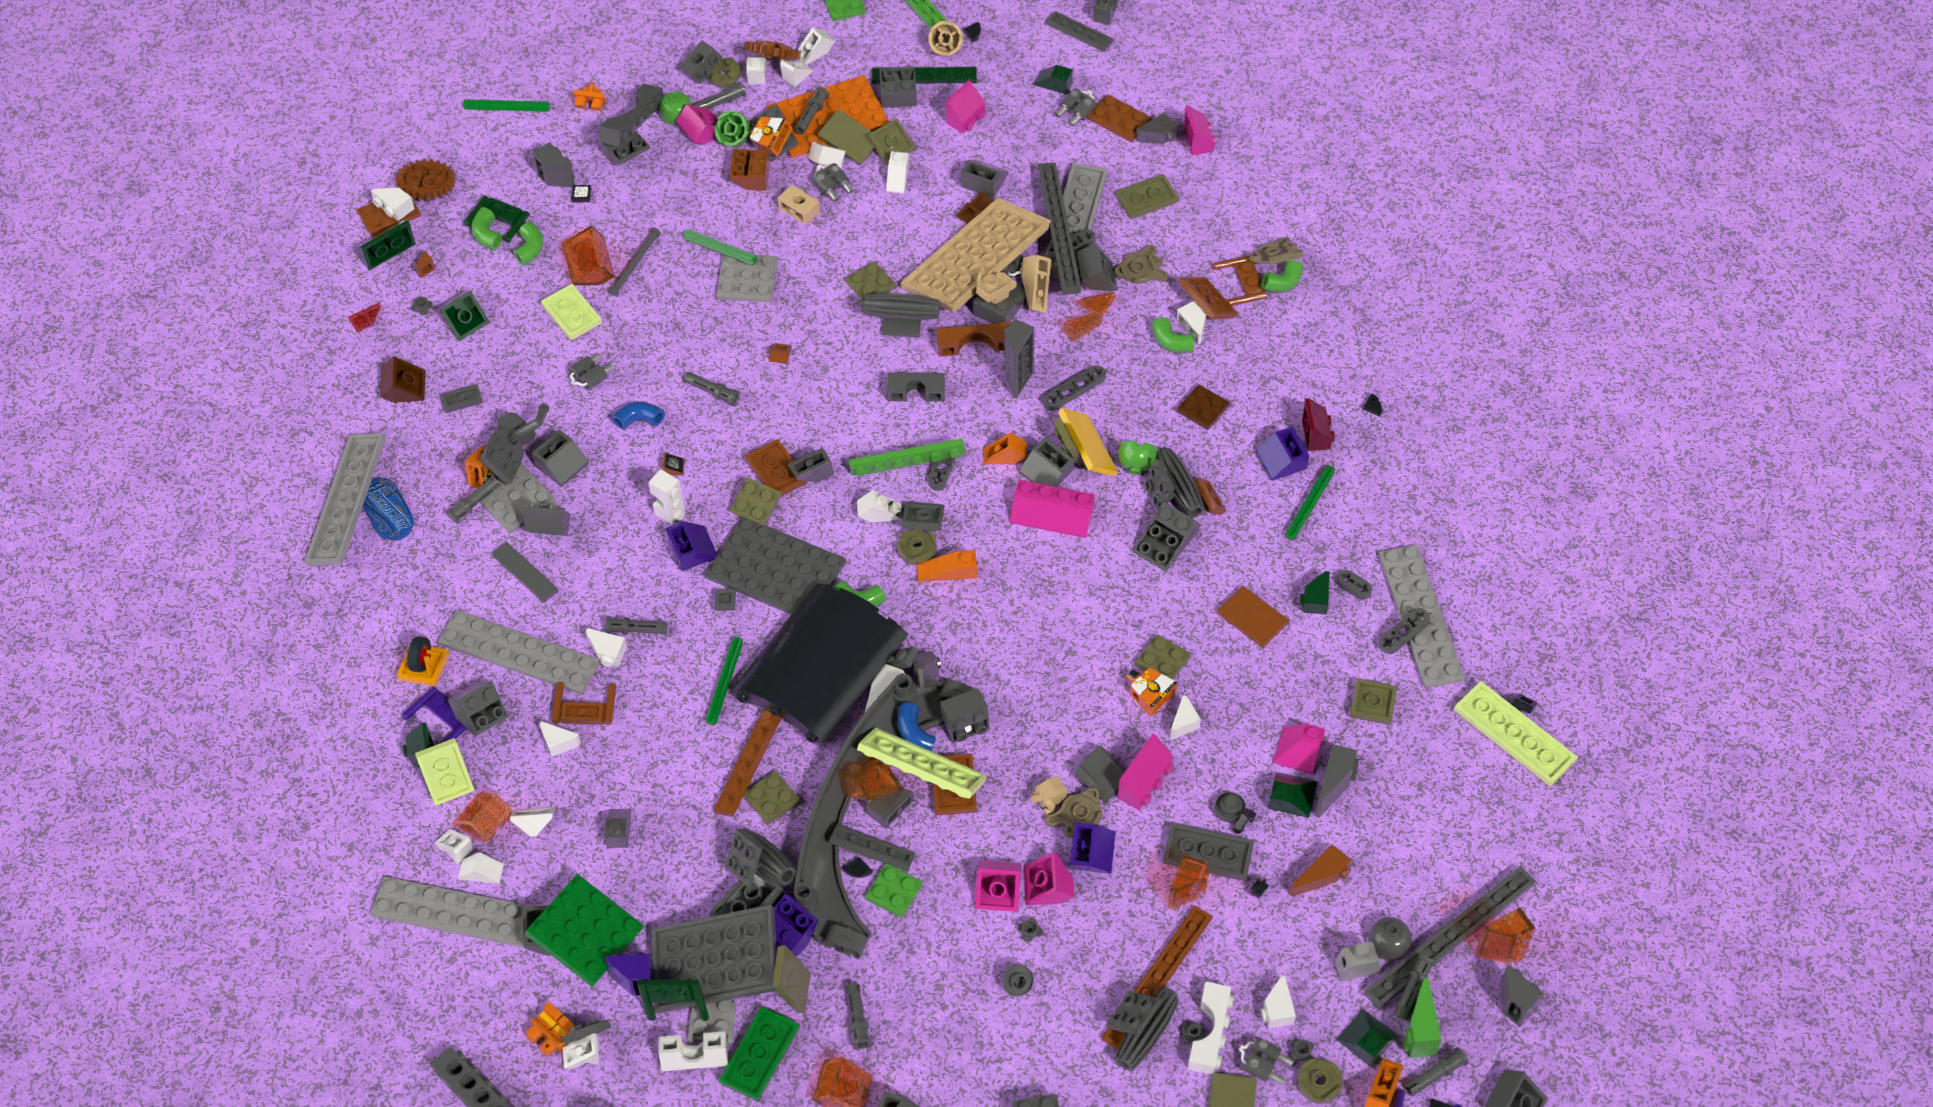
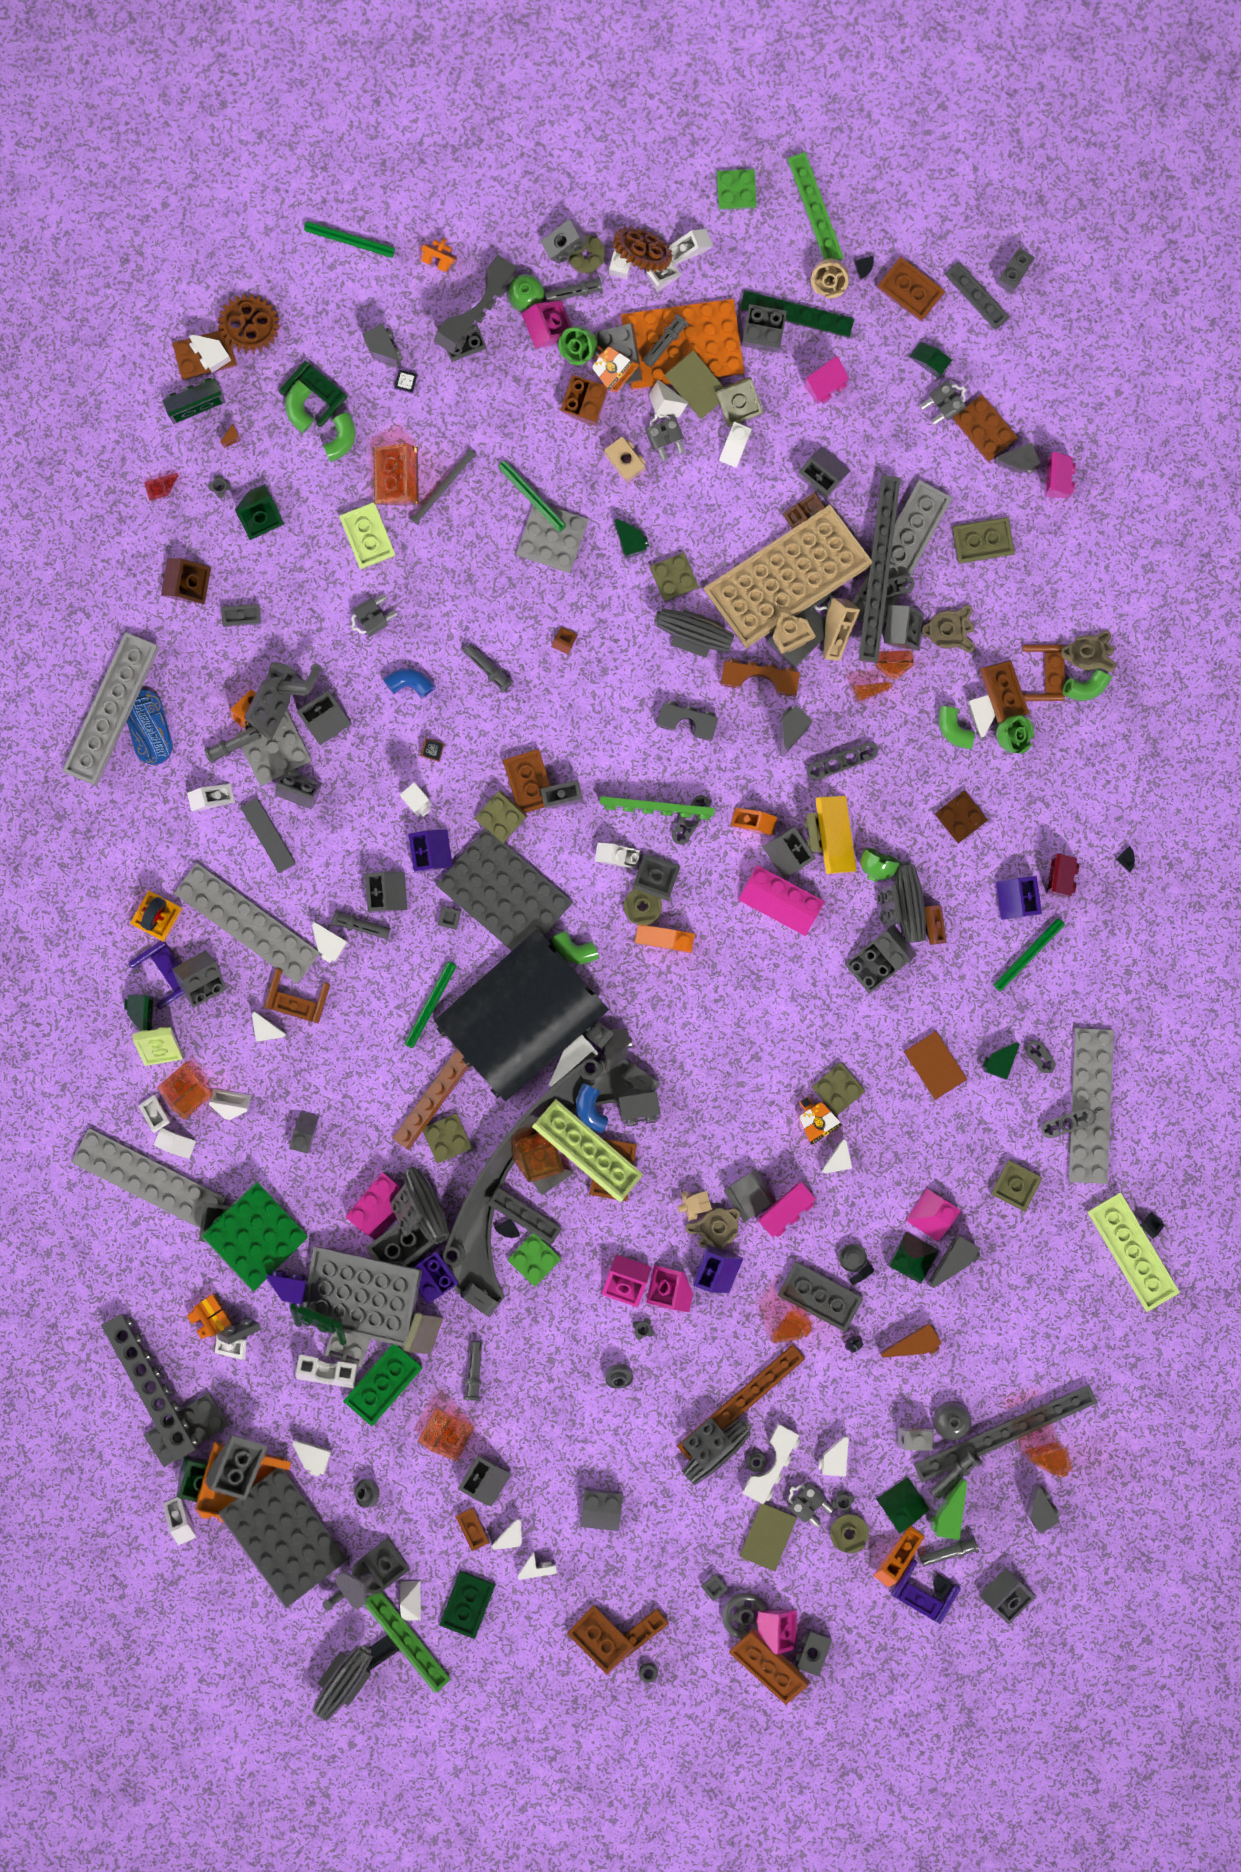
camera: 10 degrees right, 30 degrees up
(458, 550) = (210, 797): none -> white slope
(654, 589) = (386, 891): none -> dark grey slope
(708, 877) = (373, 1211): none -> dark pink slope
(821, 260) = (631, 539): none -> dark green slope
(1019, 37) = (911, 289): none -> dark orange plate
(1229, 326) = (1015, 734): none -> bright green cylinder

